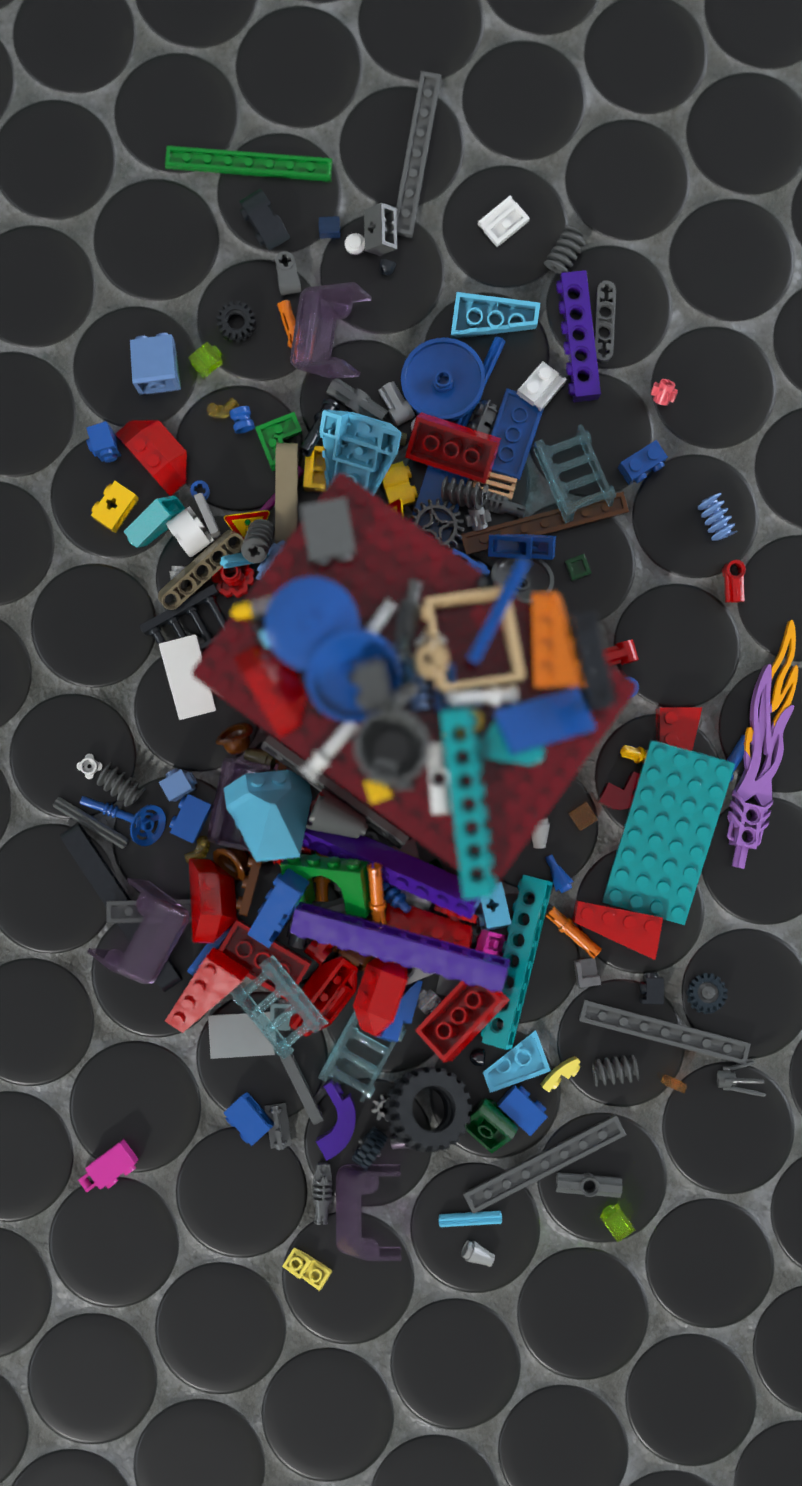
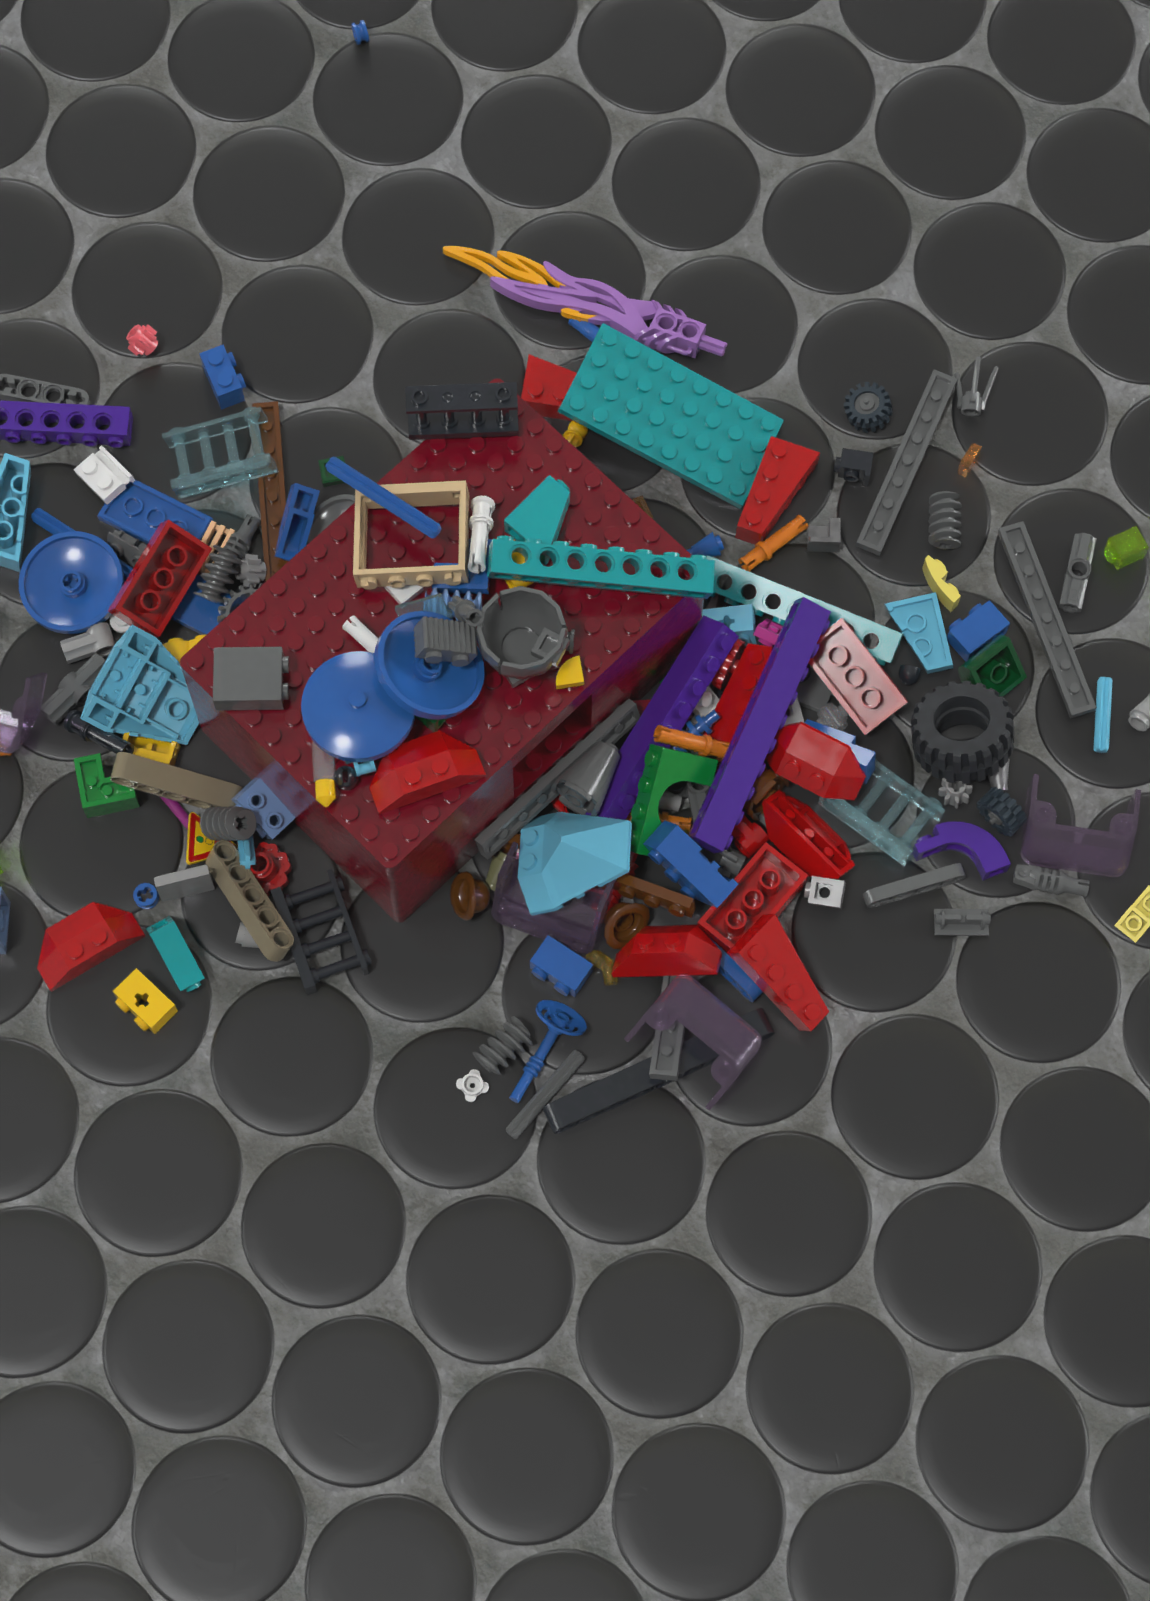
camera: 80 degrees left, 15 degrees down
(103, 442) = (61, 997): blue brick -> none
(109, 1166) = (986, 1134): dark pink brick -> none
(178, 784) = (515, 970): medium blue brick -> none
(189, 532) = (198, 909): white brick -> none
(189, 694) = (381, 942): white sticker -> none
(220, 411) = (51, 852): clear yellow arm -> none
(237, 1036) = (842, 949): light grey tile -> none
(242, 419) = (67, 829): blue wheel -> none
(248, 1119) = (948, 951): blue brick -> none
(298, 1004) = (813, 857): clear light blue fence -> none
(321, 758) = (518, 727): white pin -> none
(409, 612) = (363, 604): dark grey hinge -> none
(439, 794) = (585, 600): white piece -> none
(440, 659) = (427, 562): tan gear -> none
(484, 581) = (345, 517): black hinge -> none
(544, 720) = (520, 471): blue tile -> none
(553, 645) = (436, 449): orange wedge -> none
(618, 798) = (619, 462): dark red brick -> none
(716, 517) = (305, 306): medium blue piece -> none
(734, 584) = (387, 301): red piece -> none

